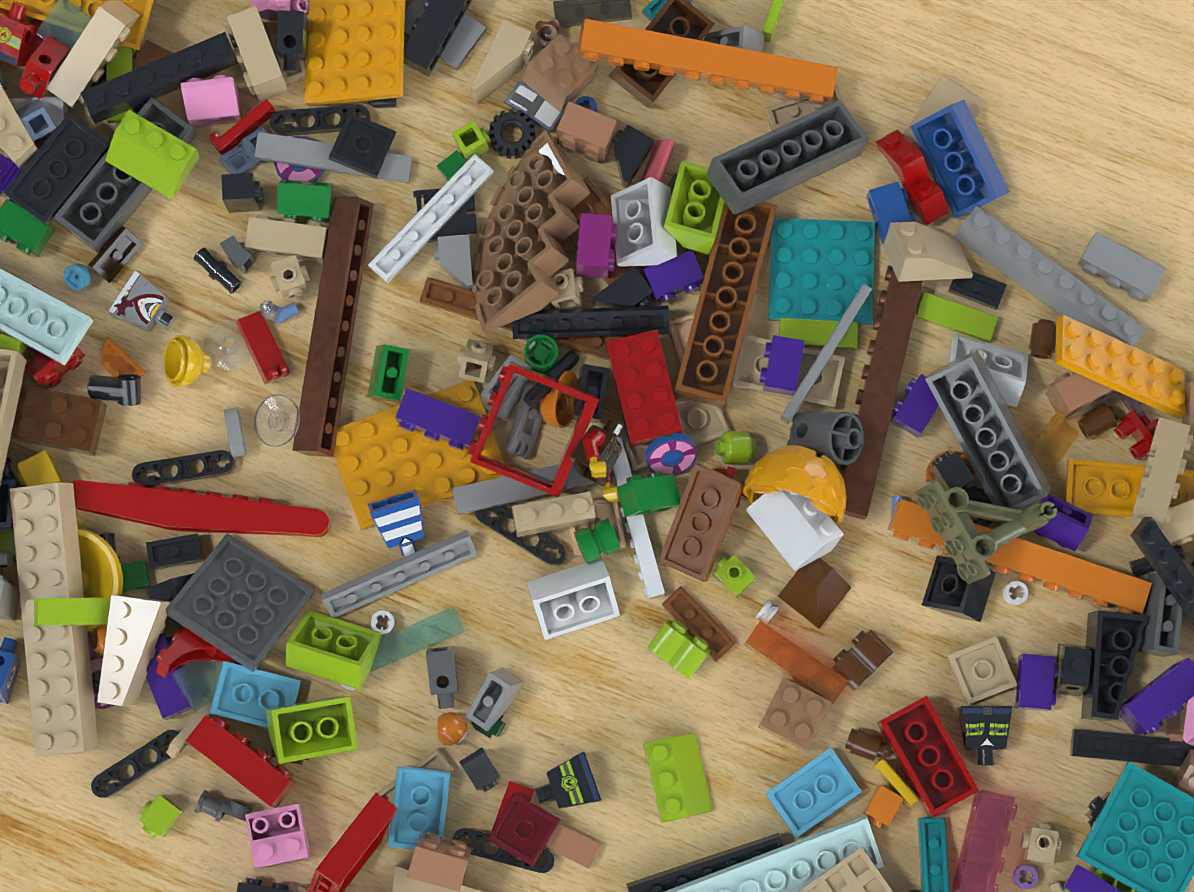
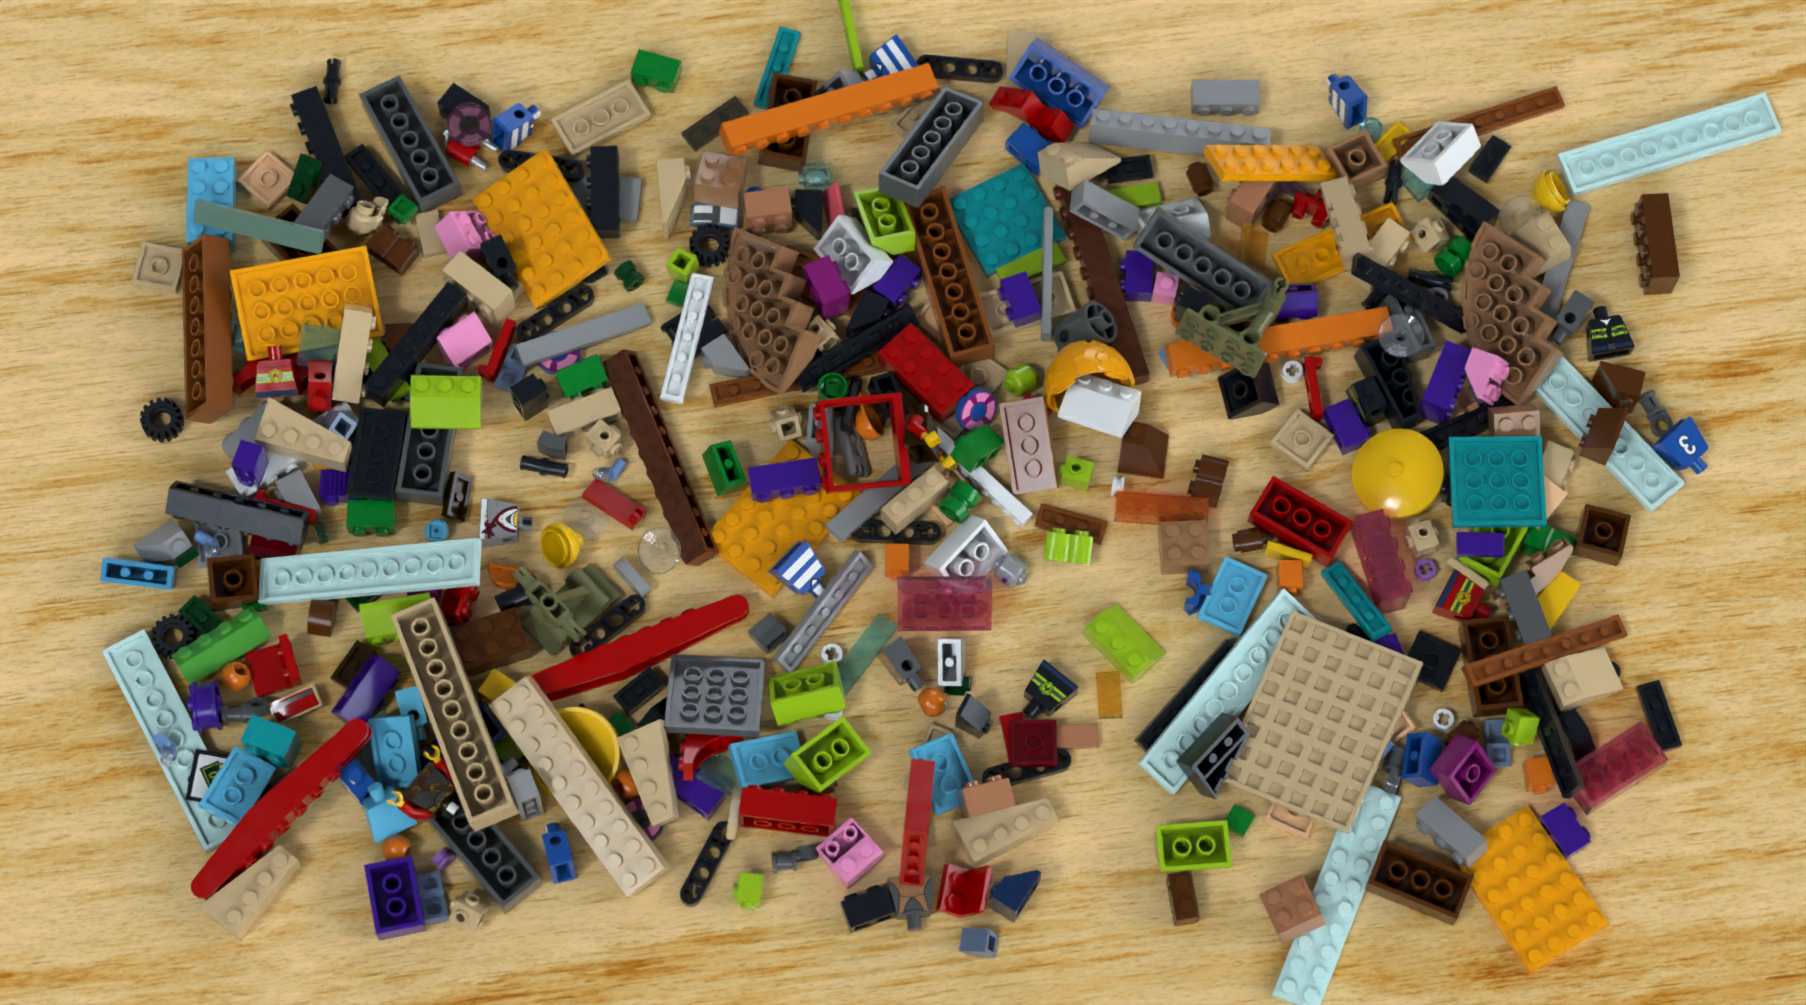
camera: 30 degrees left, 10 degrees down
(71, 611) = (594, 765): lime tile -> none
(154, 430) = (565, 614): none -> olive plate
(333, 565) = (768, 633): none -> dark grey piece
(362, 145) = (601, 313): black tile -> none
(414, 121) = (629, 276): none -> dark green wheel
(501, 564) = (896, 560): none -> orange brick
(519, 637) = (944, 603): none -> clear pink brick
(542, 27) = (692, 150): dark orange plate -> none
(608, 638) = (1010, 570): none -> light grey head
(630, 821) = (1109, 695): none -> clear yellow tile
(656, 121) = (815, 176): none -> clear light blue head
(784, 770) = (1193, 604): none -> blue piece
(803, 41) = (889, 59): none -> torso
(873, 83) = (960, 65): none -> black beam
(923, 320) = (1104, 210): none -> light grey brick
(937, 434) = (1165, 288): none -> bright pink brick
(984, 730) = (1330, 480): torso -> none
(1025, 621) = (1312, 388): none -> red hinge
(1057, 763) = (1398, 473): none -> yellow dish
(1155, 616) = (1404, 326): none -> clear dish

